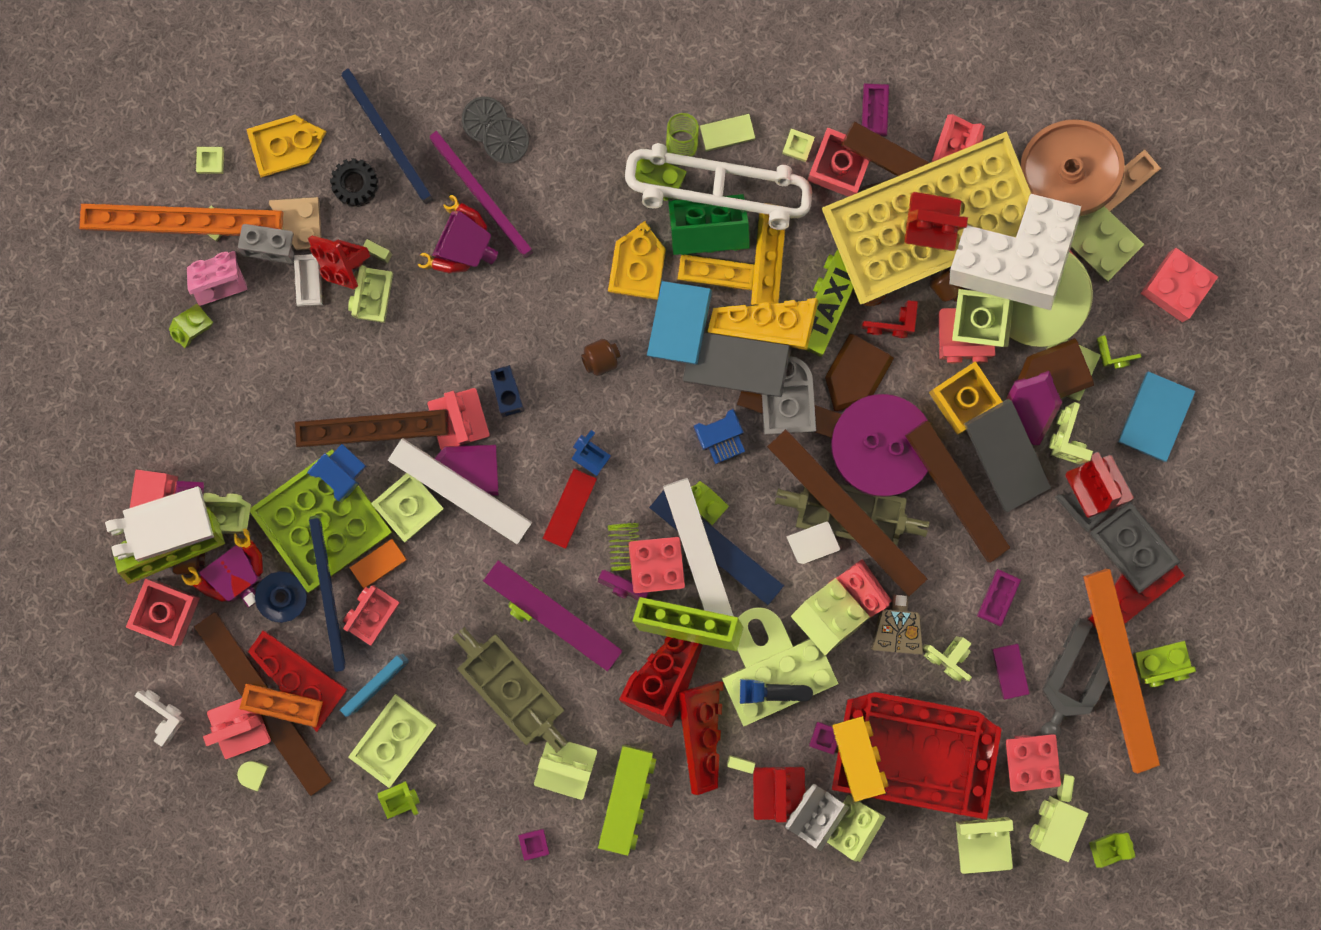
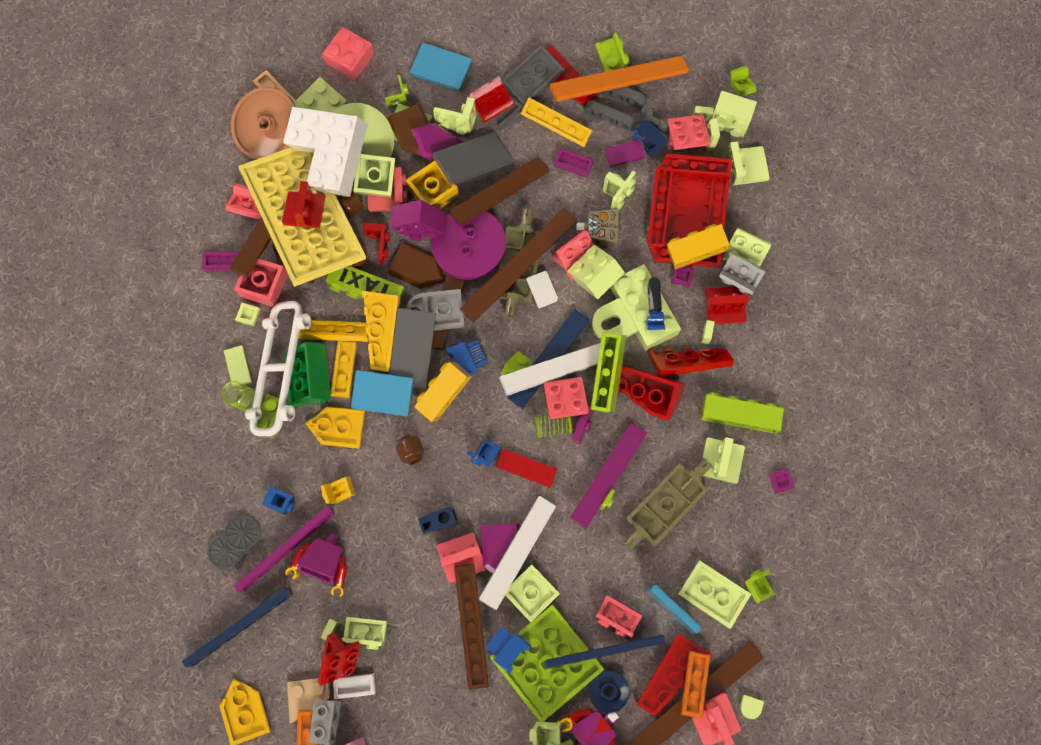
camera: 90 degrees left, 10 degrees down
(354, 167) = (266, 643): black tyre -> none
(378, 563) = (577, 614): orange tile -> none
(541, 178) = (272, 501): none -> blue brick
(552, 262) = (338, 490): none -> yellow bracket
(675, 402) = (442, 391): none -> yellow brick
(914, 376) = (417, 220): none -> magenta brick
(1028, 796) = (714, 134): none -> yellowish green tile
(1030, 708) = (650, 137): none -> dark blue leg
(1061, 577) = (556, 122): none -> yellow plate

